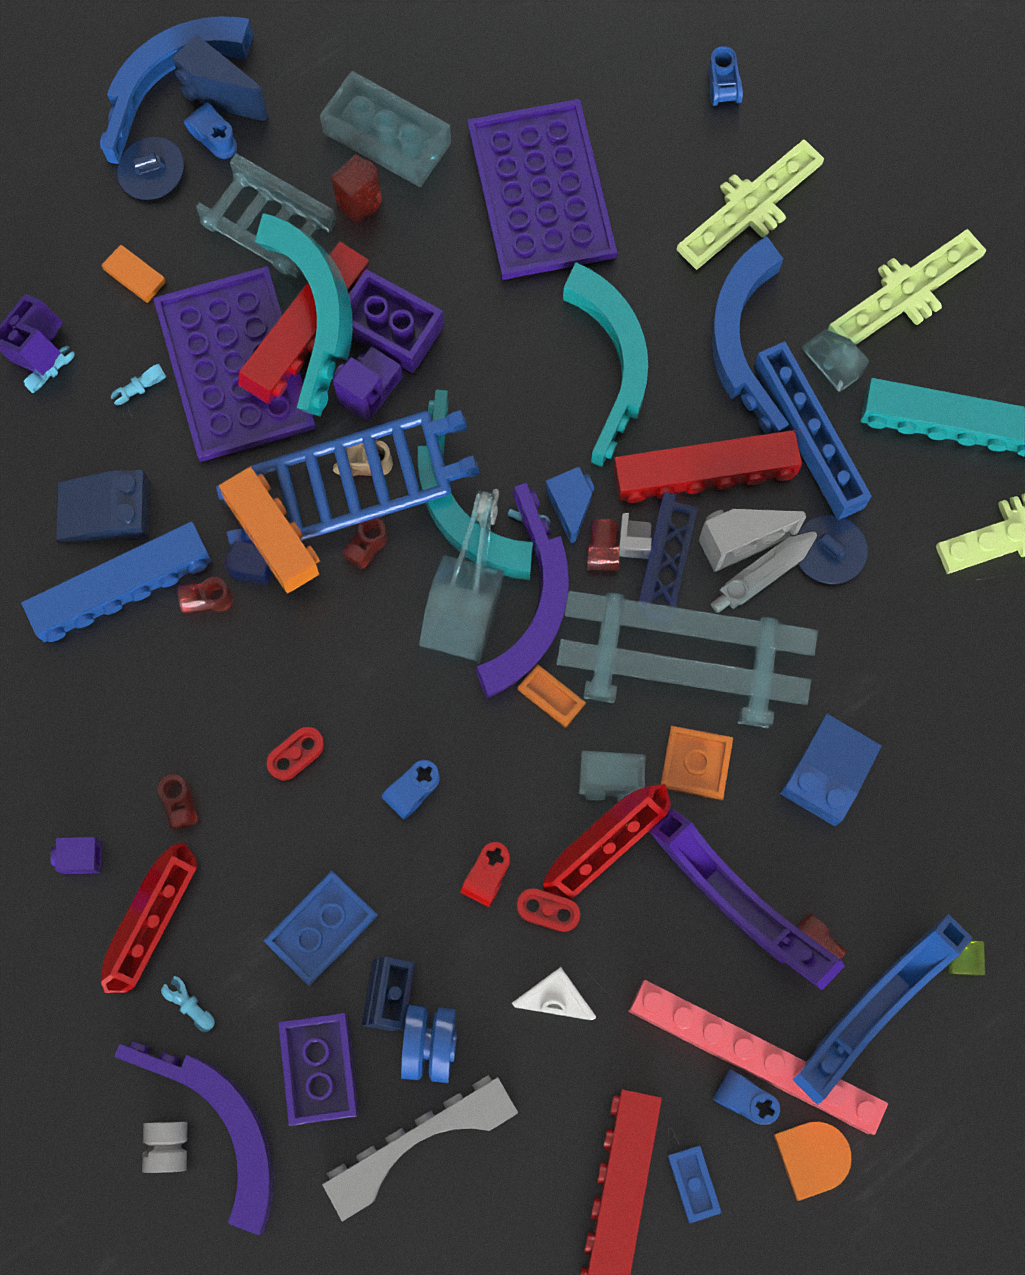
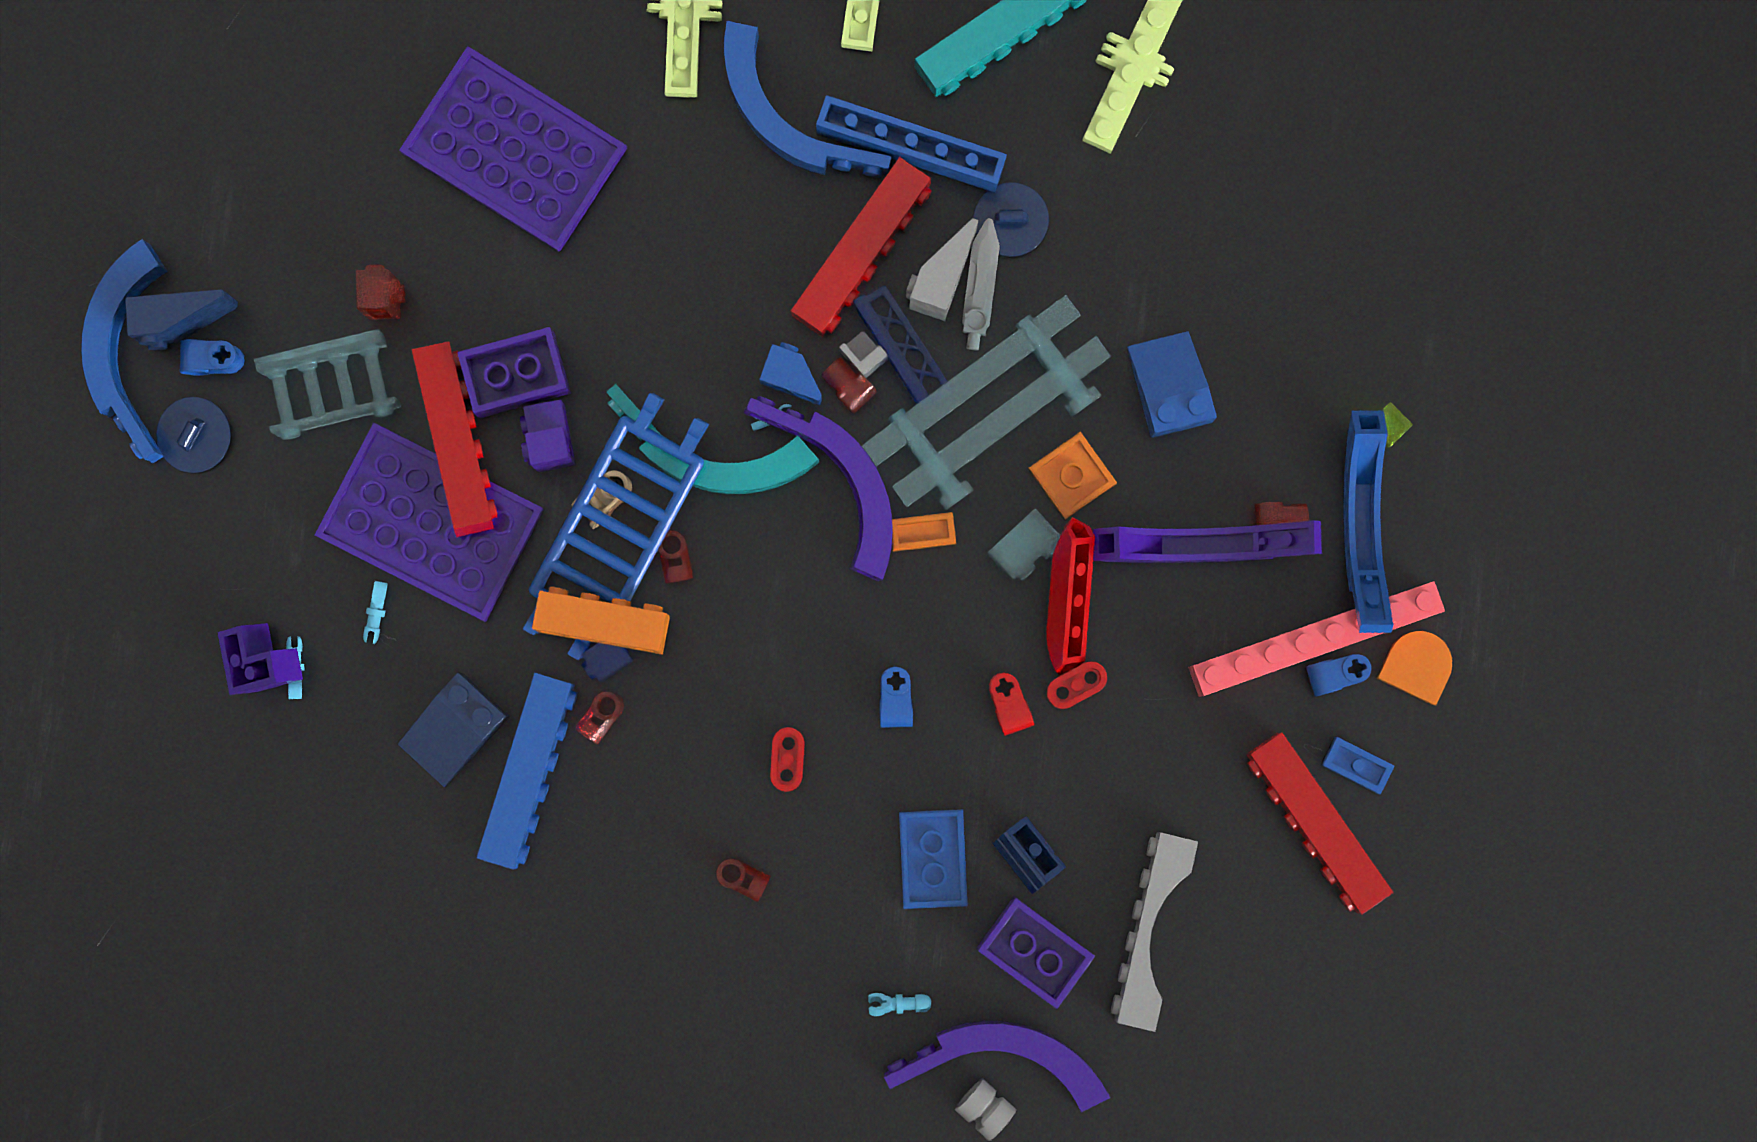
camera: 50 degrees left, 10 degrees up
(77, 855) = (712, 987): dark purple brick -> none
(134, 273) = (275, 530): orange tile -> none
(147, 919) = (809, 977): red brick -> none
(331, 302) = (457, 402): teal arch -> none
(386, 128) = (346, 221): clear light blue brick -> none
(430, 1044) = (1096, 855): blue wheel -> none
(465, 592) = (788, 522): clear light blue slope -> none
(555, 996) = (1140, 737): white tile -> none
(614, 314) = (683, 198): teal arch -> none
(836, 358) = (870, 65): clear light blue slope -> none

